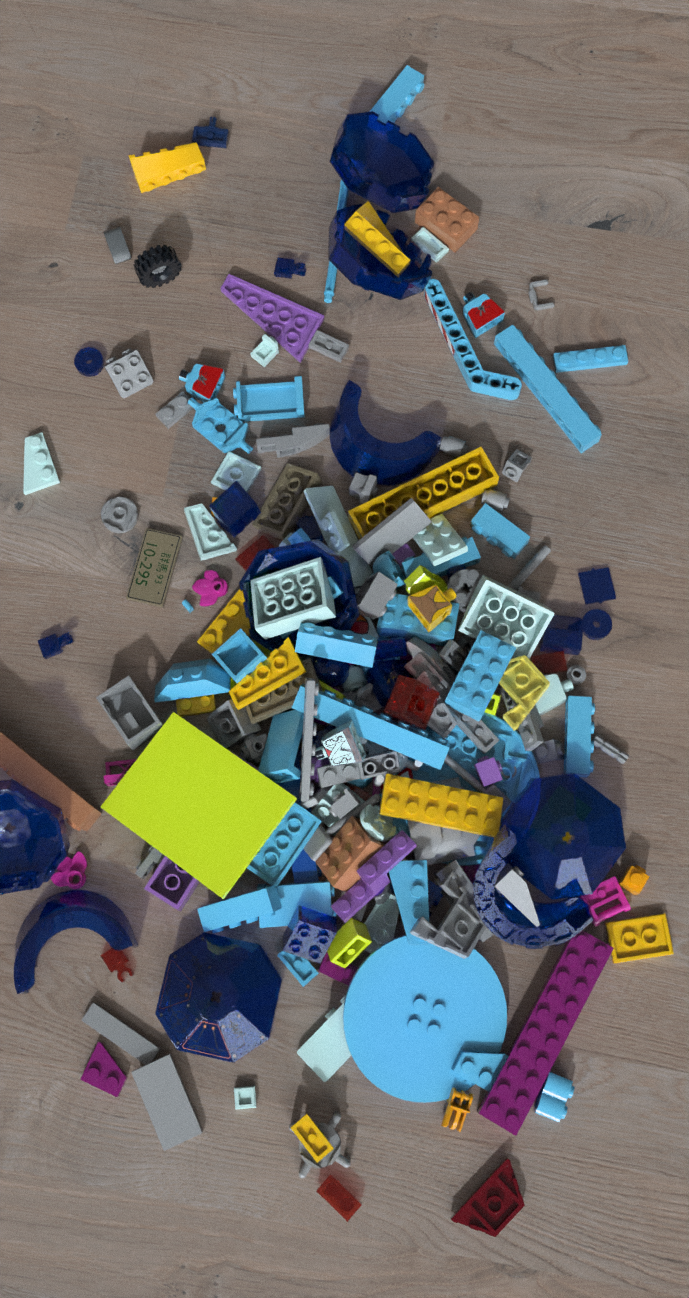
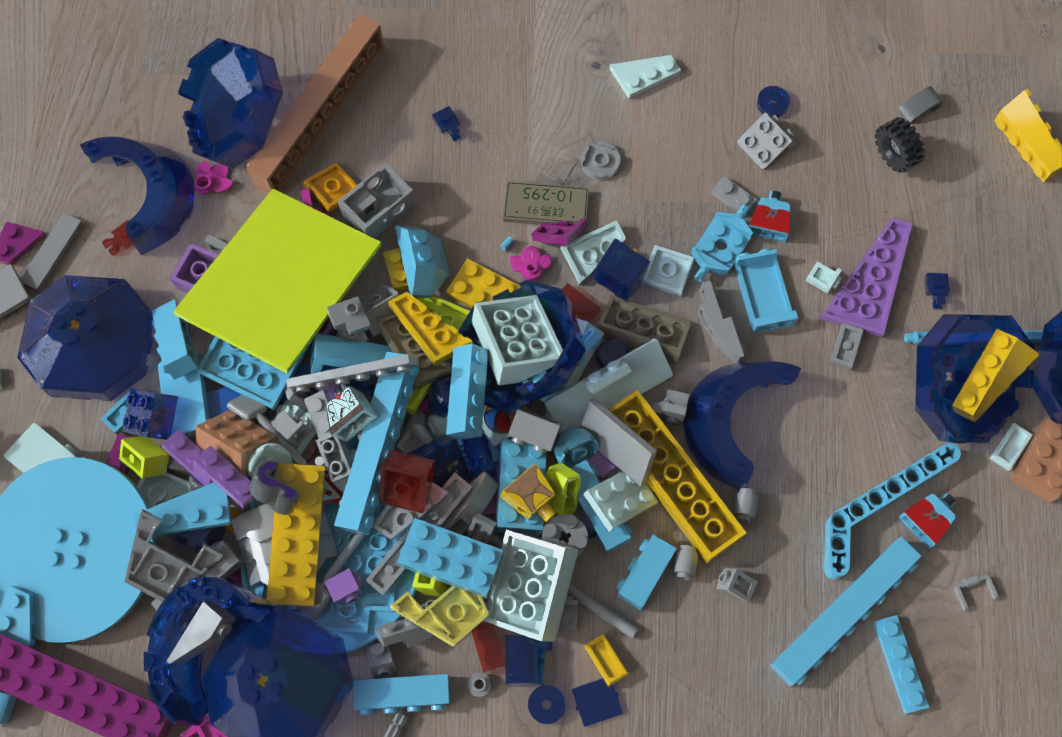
camera: 80 degrees right, 5 degrees down
(102, 756) = (330, 186): none -> light orange tile
(187, 558) = (558, 232): none -> magenta wing
(239, 655) = (448, 297): medium azure piece -> none
(249, 739) = (349, 316): none -> light grey brick
(407, 817) = (271, 491): none -> dark grey animal
(554, 694) = (450, 657): light aqua torso -> none
(566, 573) = (606, 660): none -> yellow tile

